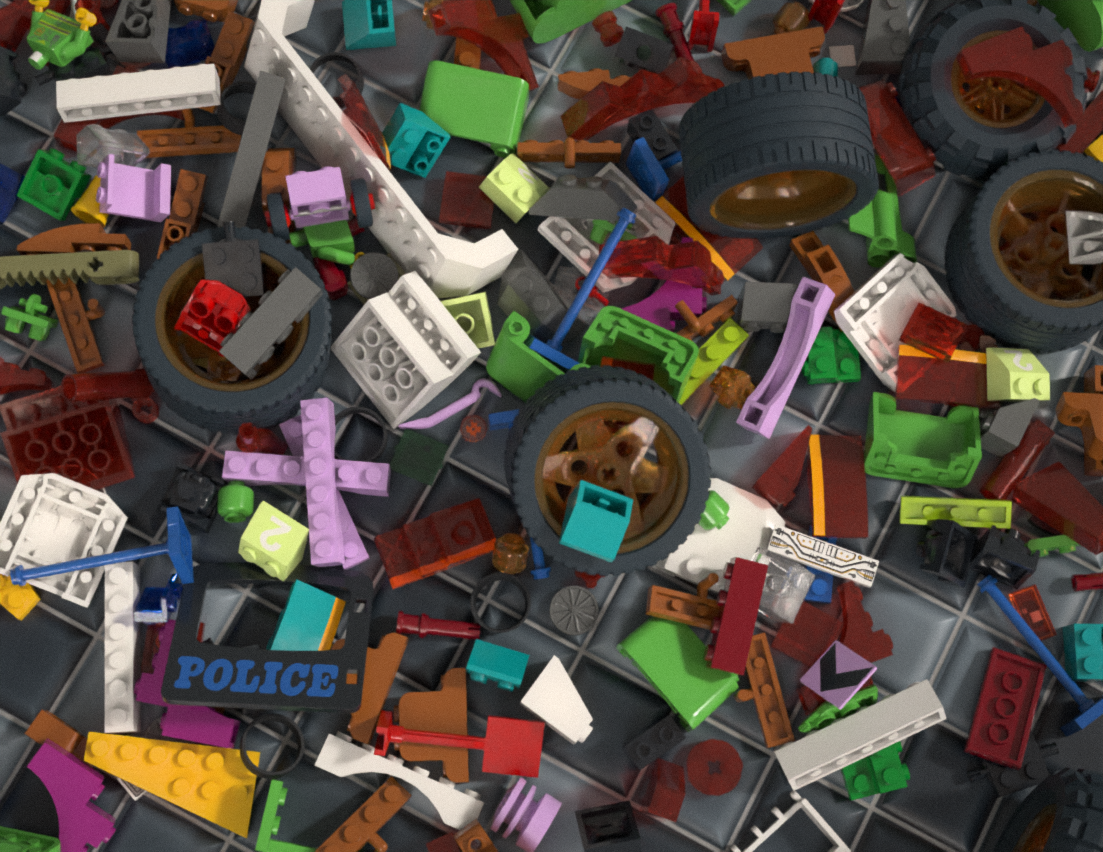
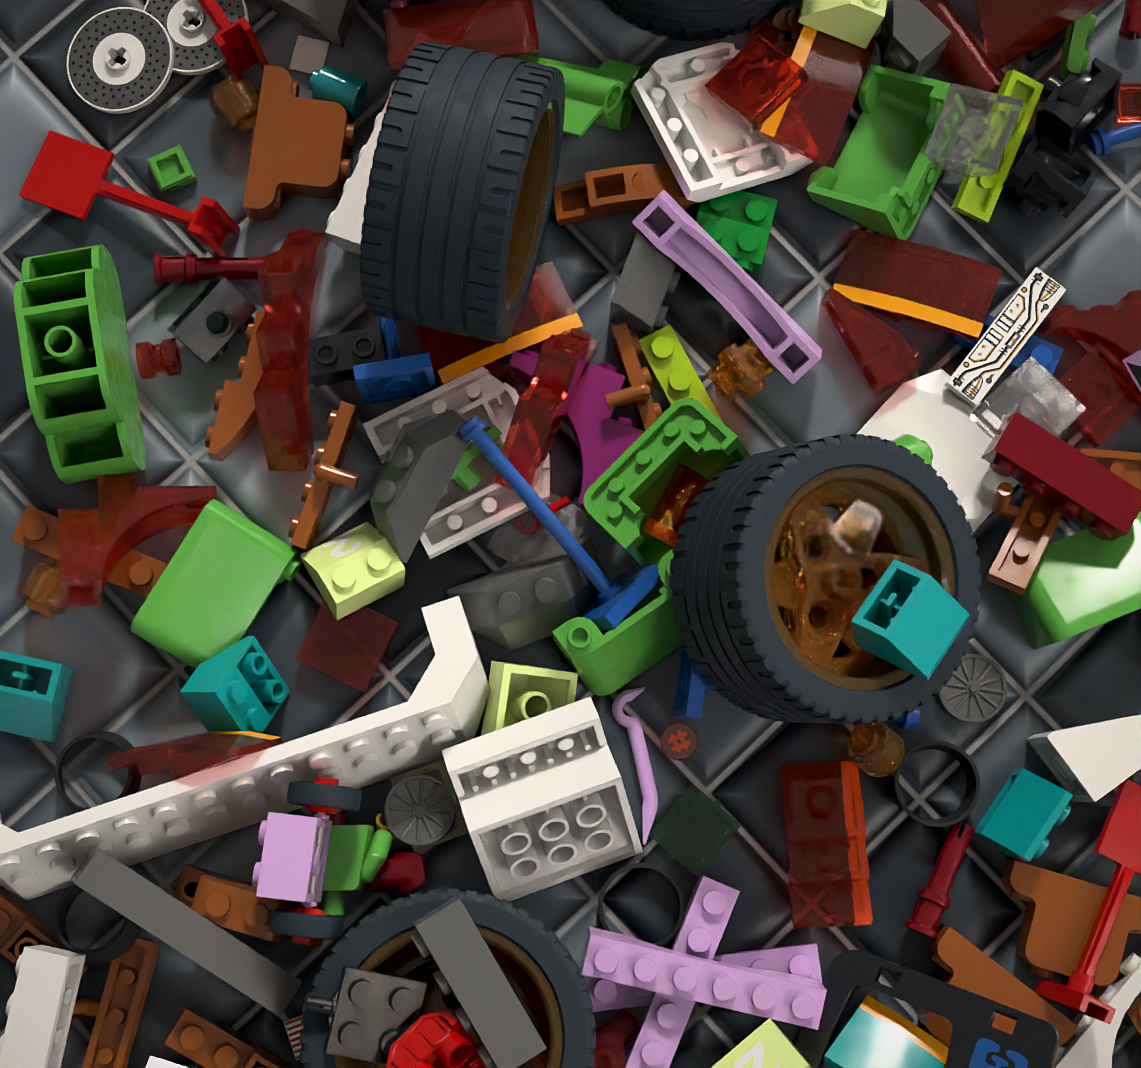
camera: 65 degrees left, 5 degrees up
(954, 481) = (972, 131): none -> clear slope

